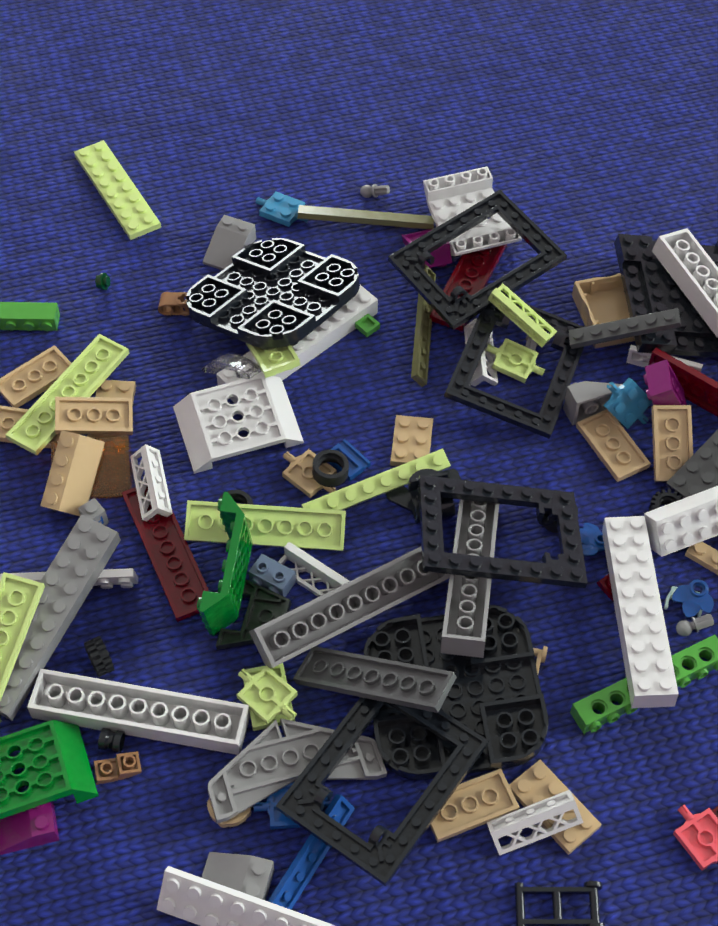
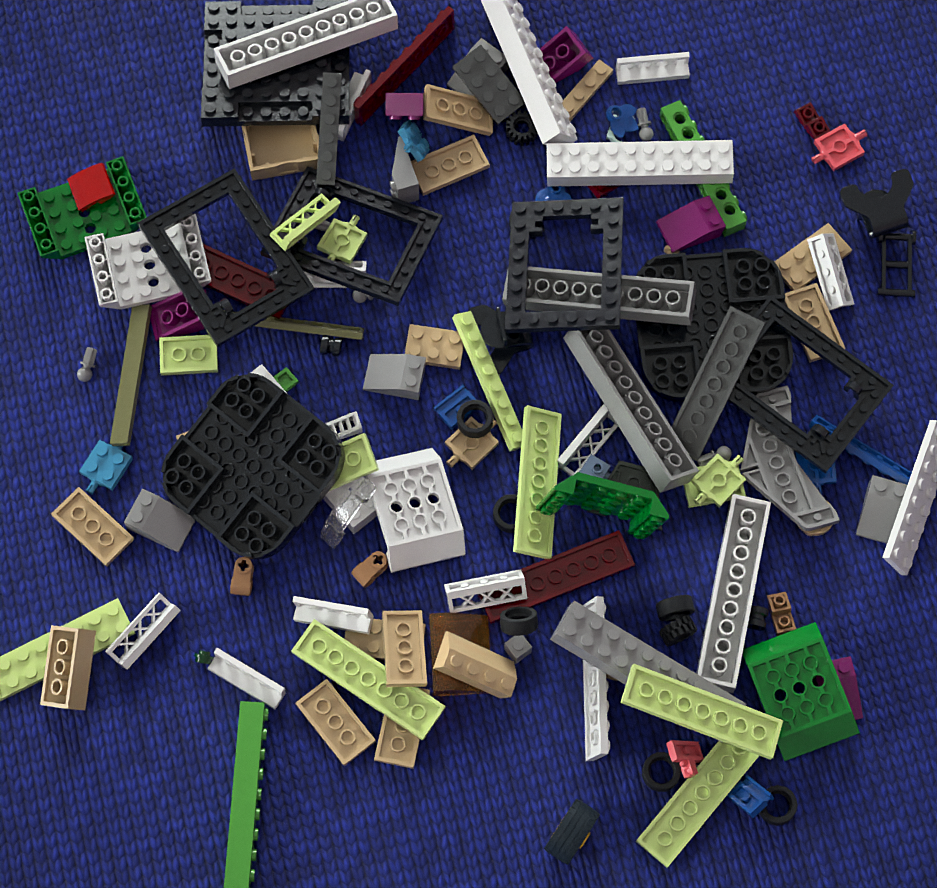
camera: 90 degrees left, 15 degrees up
(81, 313) = (246, 679): none -> white fence
(96, 191) = (68, 667): none -> tan slope
(109, 514) = (519, 621): none -> black tyre
(123, 653) = (675, 607): none -> black tyre
(124, 241) = (148, 636): none -> white fence
(133, 367) = (333, 615): none -> white fence
(175, 392) = (368, 570): none -> medium nougat piece
(226, 200) = (92, 526): none -> tan plate
(302, 705) = (723, 451): none -> light grey axle
(325, 381) = (346, 419): none -> white slope
(377, 411) = (395, 375): none -> light grey slope
(380, 248) = (187, 355): none -> yellowish green plate
(404, 357) = (331, 345): none -> black wheel
(514, 159) = (57, 221): none -> green slope
(542, 176) = (91, 186): none -> red slope
(574, 669) = (691, 224): none -> magenta slope
(624, 878) = (878, 209): none -> black piece

